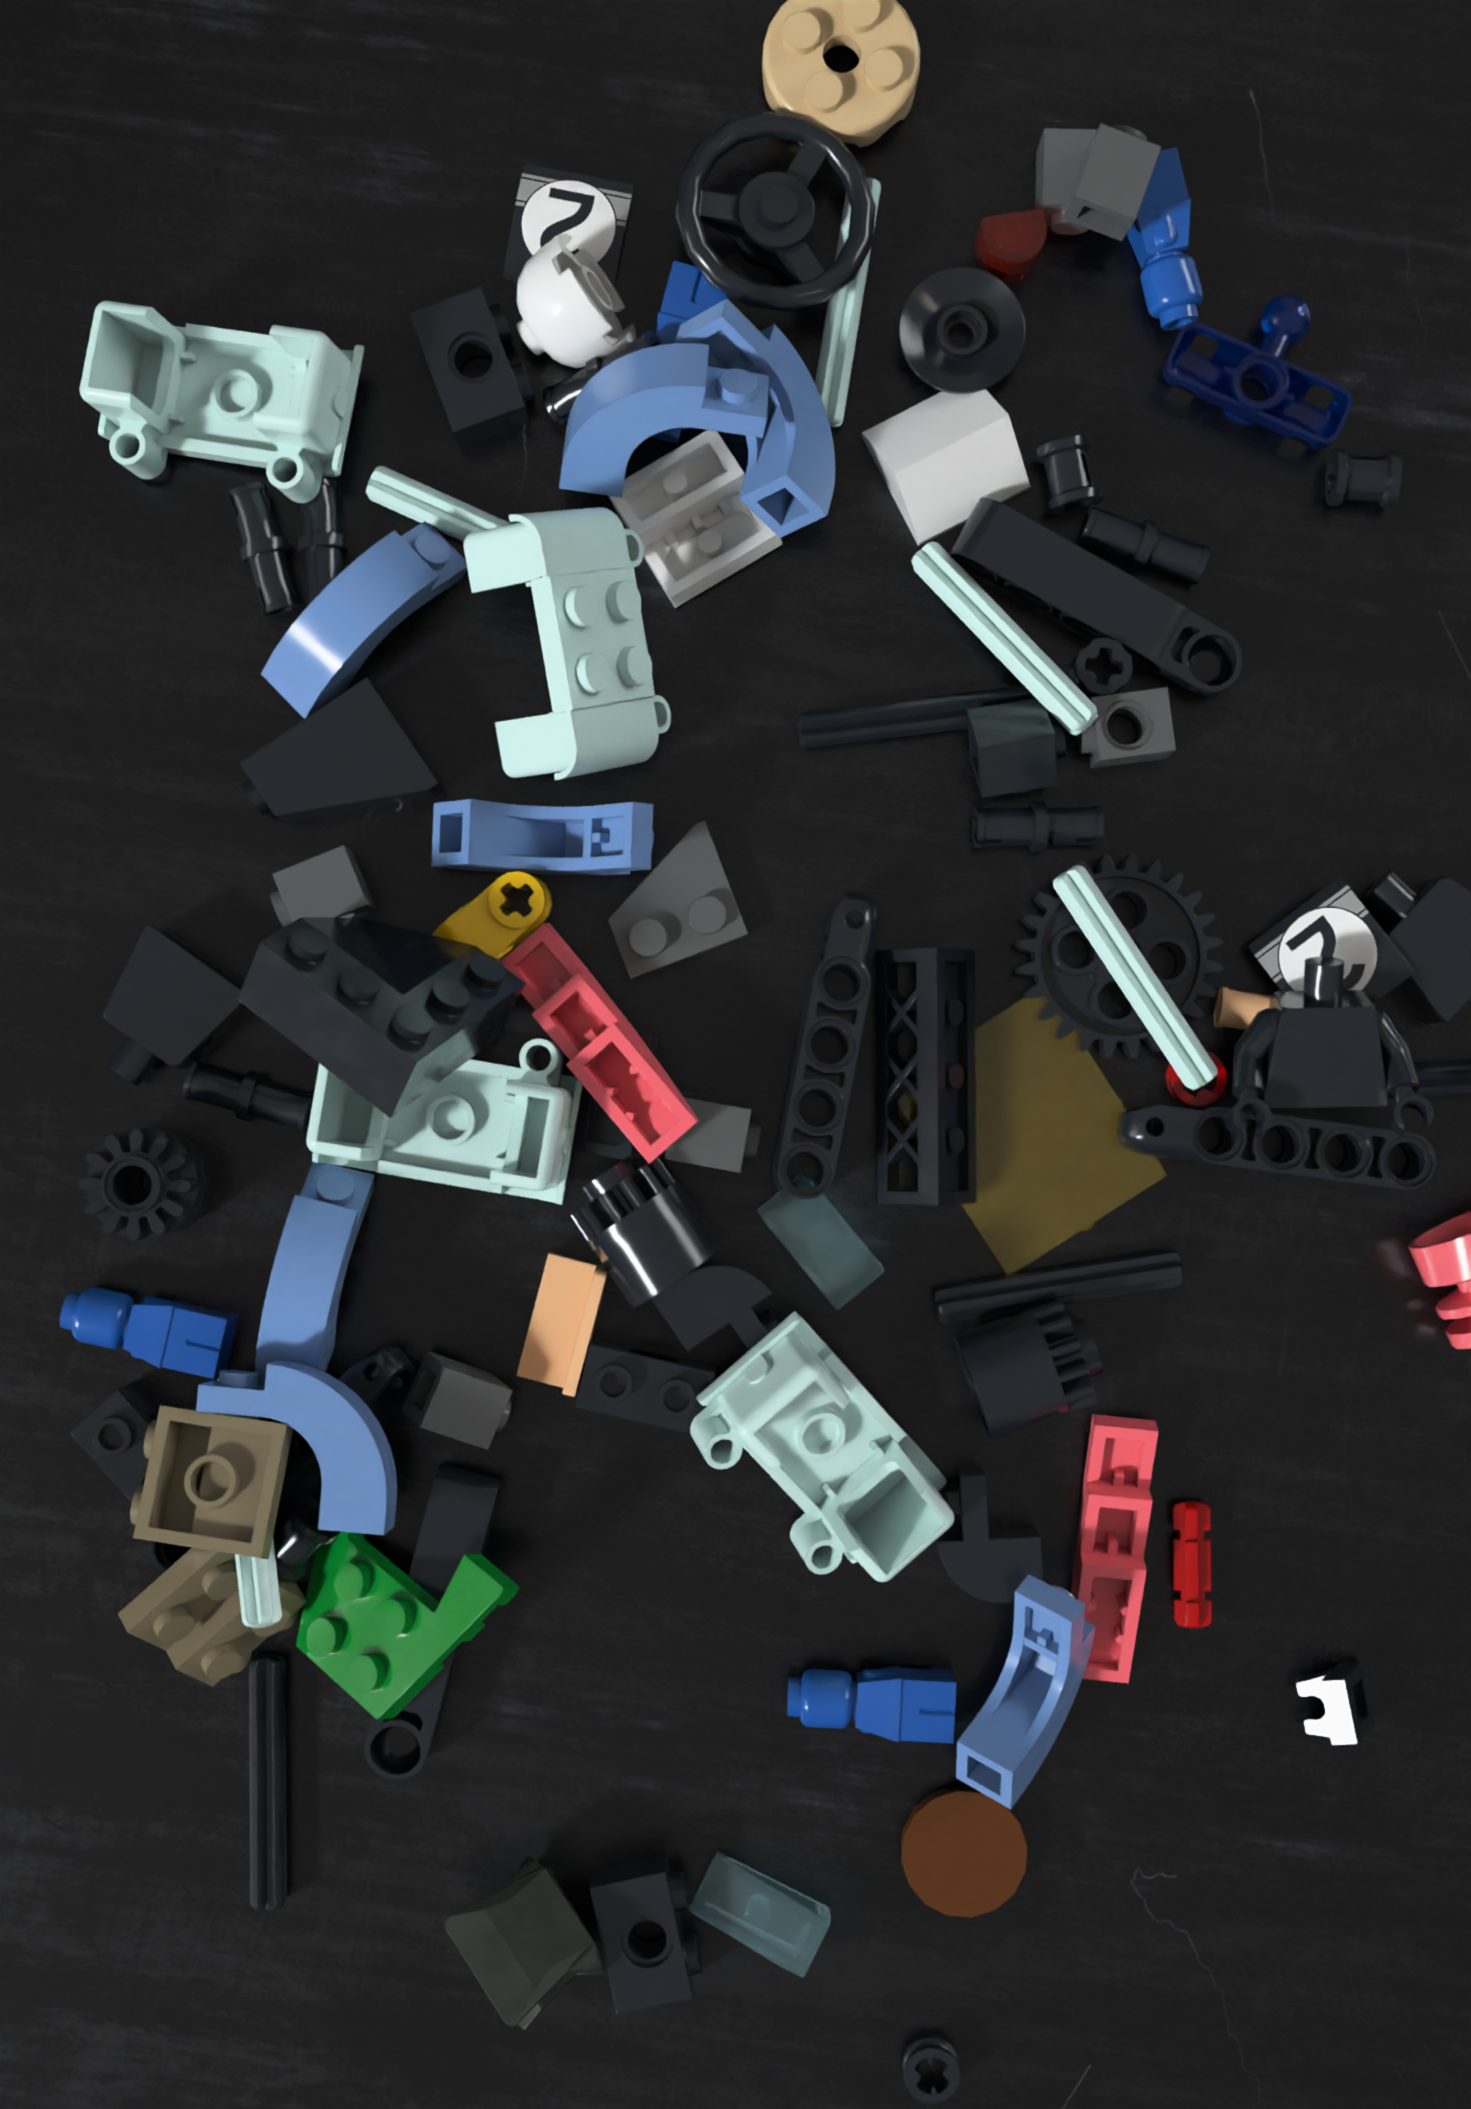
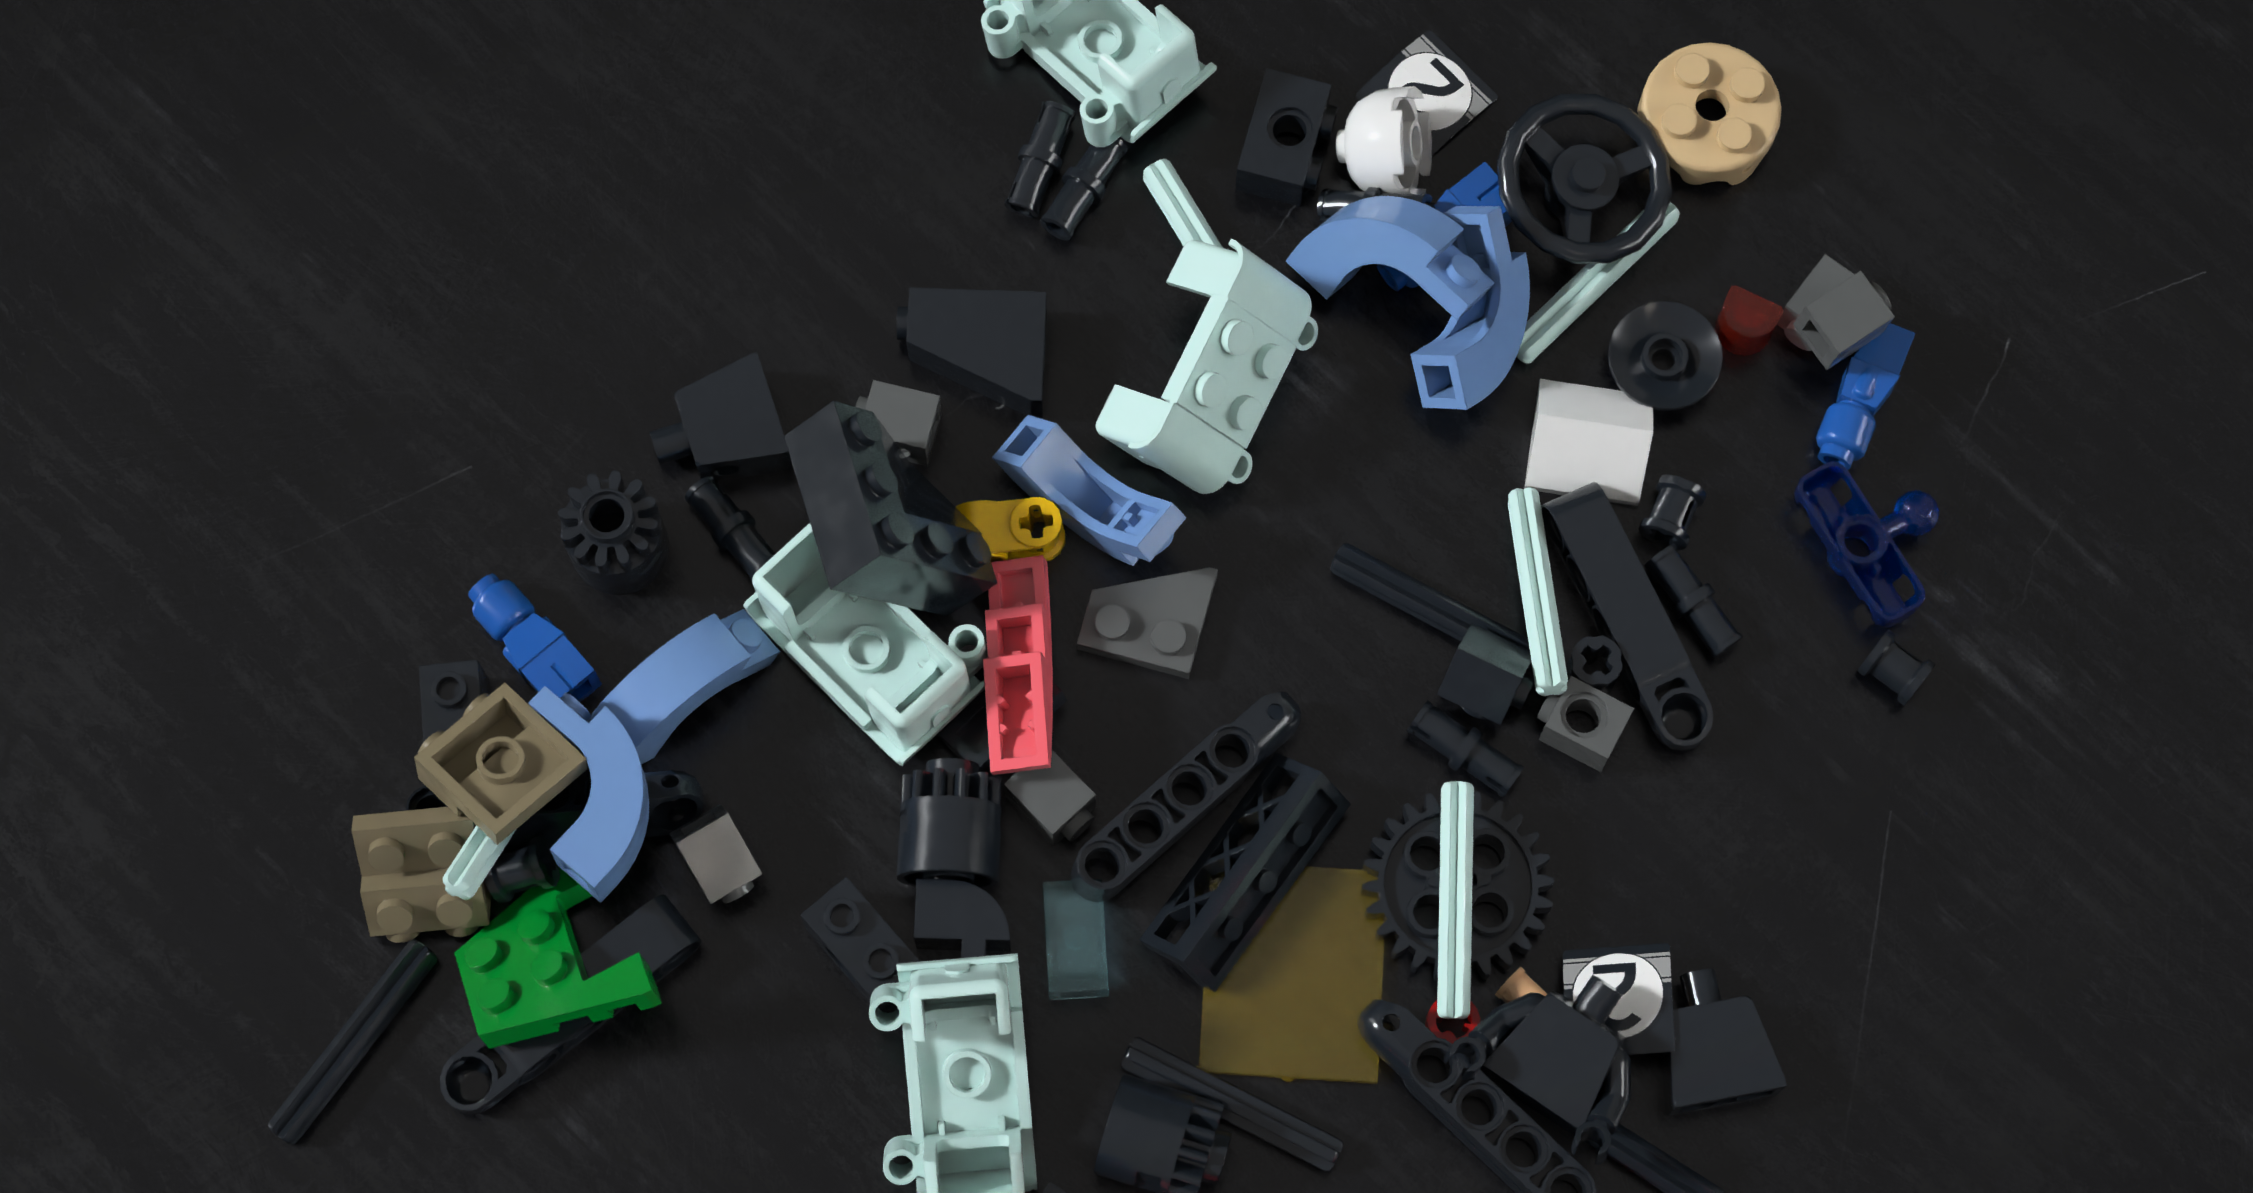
camera: 40 degrees right, 15 degrees down
(357, 612) = (1072, 243): medium blue arch -> none
(563, 1322) = (847, 849): light nougat panel -> none
(693, 517) = (1367, 350): white slope -> none

